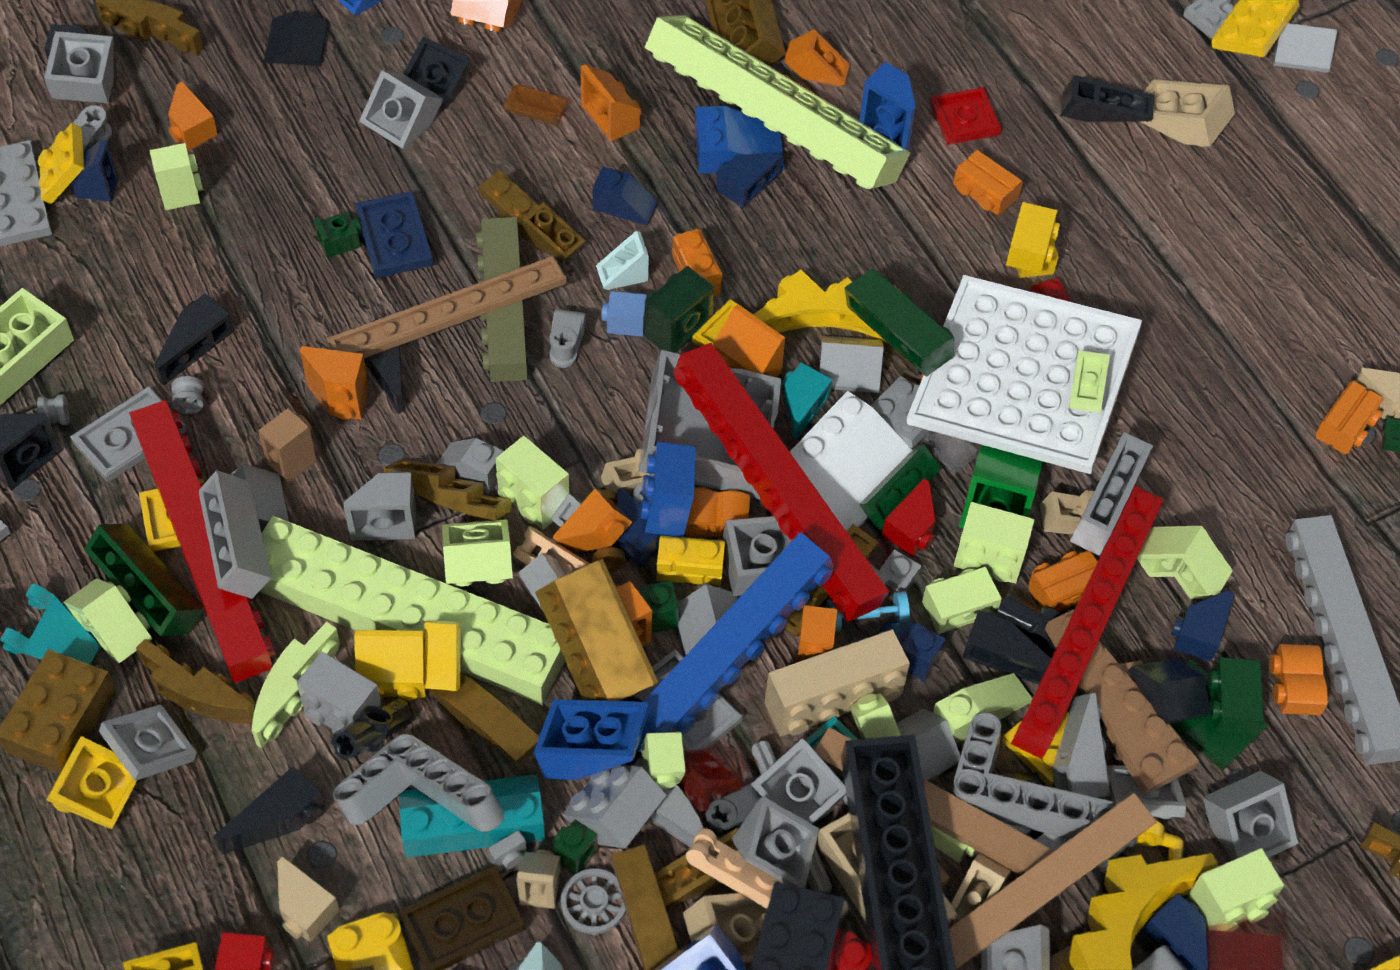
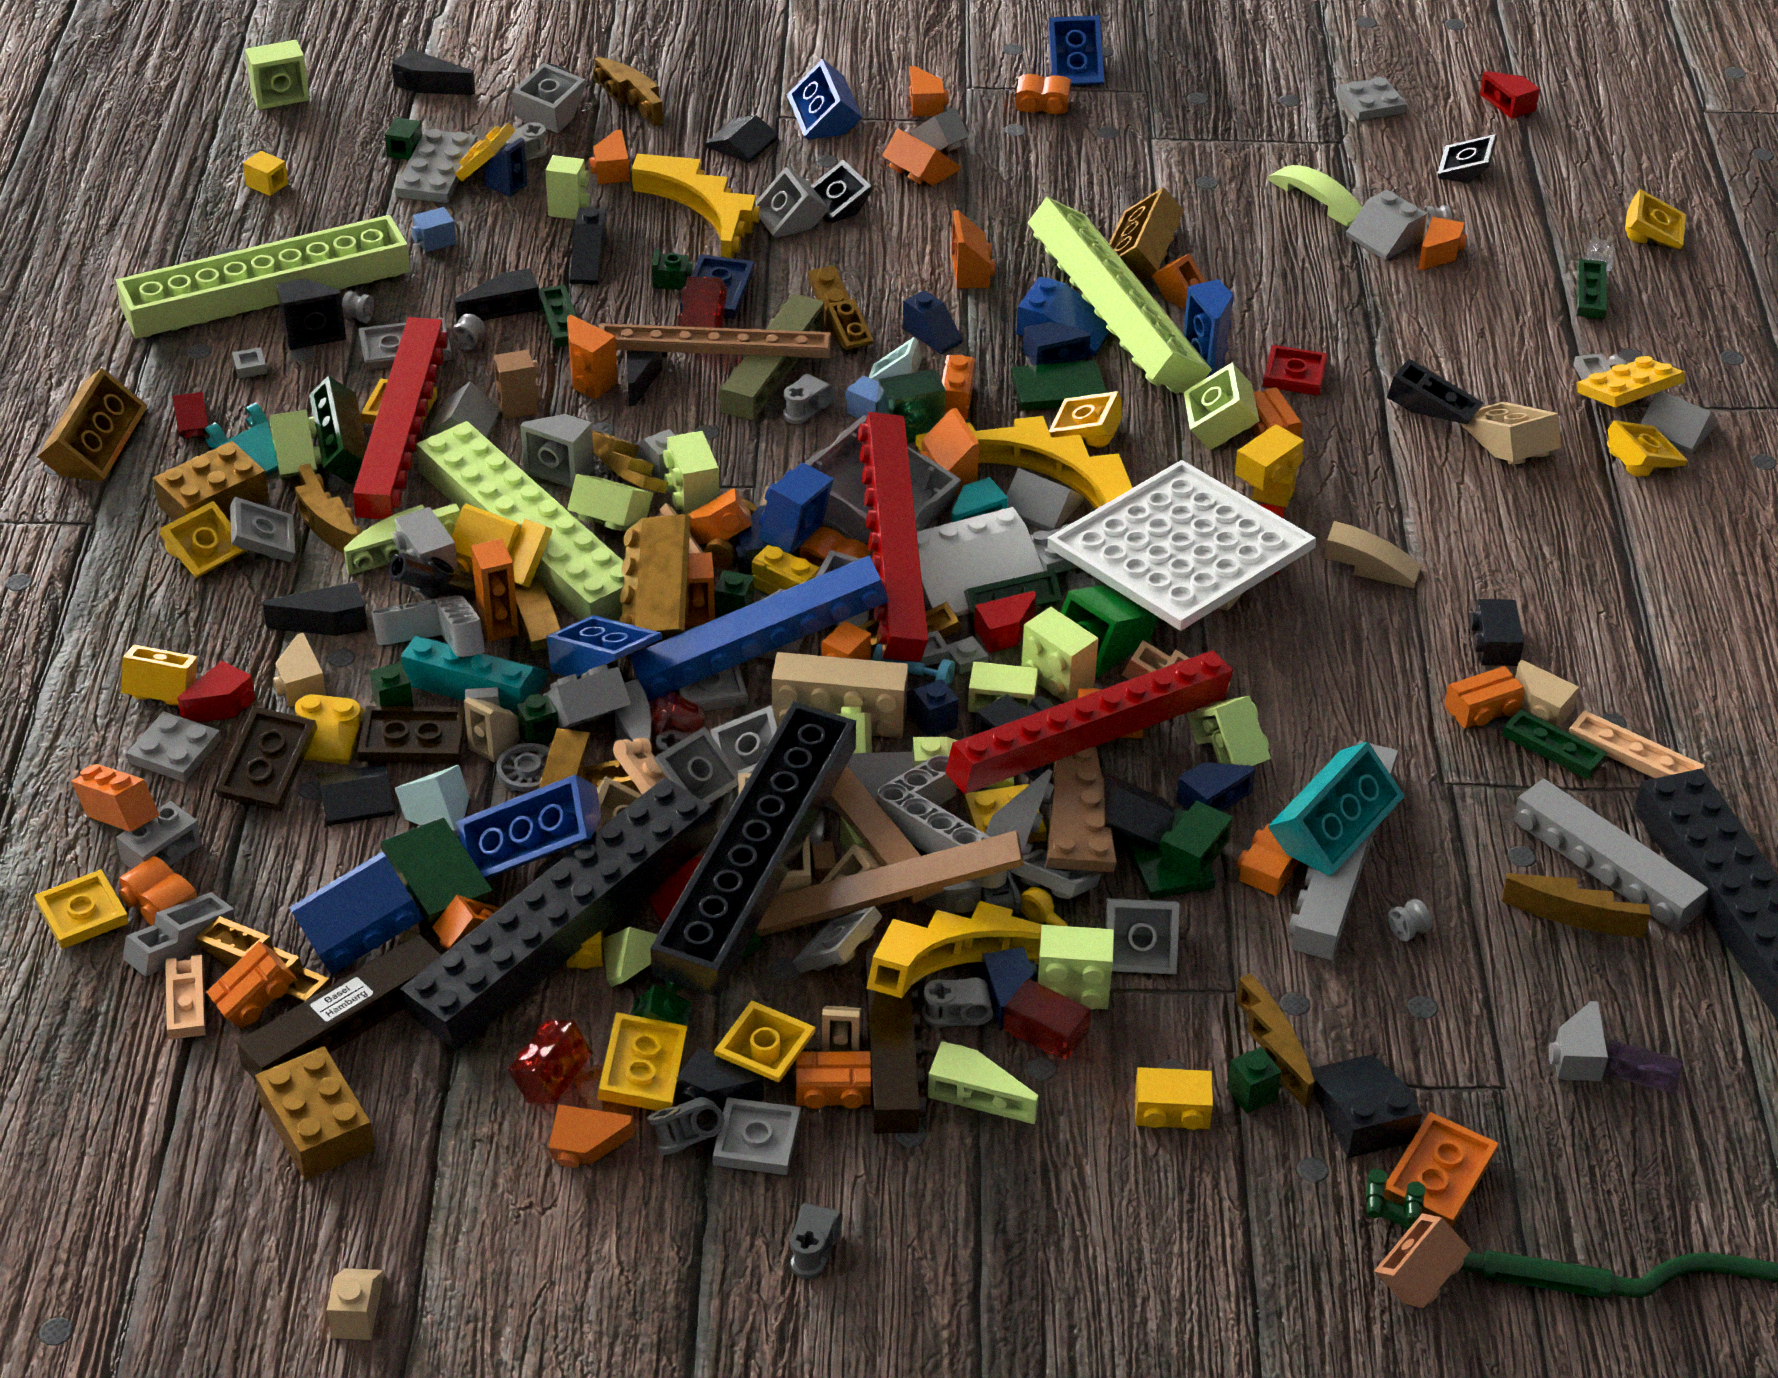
camera: 30 degrees right, 15 degrees down
(67, 279) = (434, 229): none -> medium blue brick
(234, 534) = (423, 413): light grey brick -> none
(238, 237) = (588, 246): none -> black slope
(265, 334) = (556, 308): none -> dark green plate
(314, 125) = (707, 194): none -> yellow arch
(408, 274) = (703, 302): none -> clear red brick
(410, 878) = (391, 686): none -> dark green brick
(445, 717) = (495, 590): none -> orange brick
(536, 104) = (910, 242): clear orange tile -> none
(663, 758) = (647, 678): yellowish green brick -> none
(777, 220) = (1050, 384): none -> dark green tile
(833, 250) = (1091, 416): none -> yellow slope
(900, 321) = (1093, 469): dark green brick -> none
(947, 193) = (1221, 406): none -> yellowish green brick
(1089, 381) = (1225, 558): yellowish green plate -> none
(1111, 494) = (1223, 633): light grey brick -> none
(1163, 302) = (1371, 555): none -> tan slope
(1298, 87) = (1642, 448): none -> yellow slope
(1315, 340) = (1497, 632): none -> black brick
(1336, 611) = (1337, 809): none -> teal slope

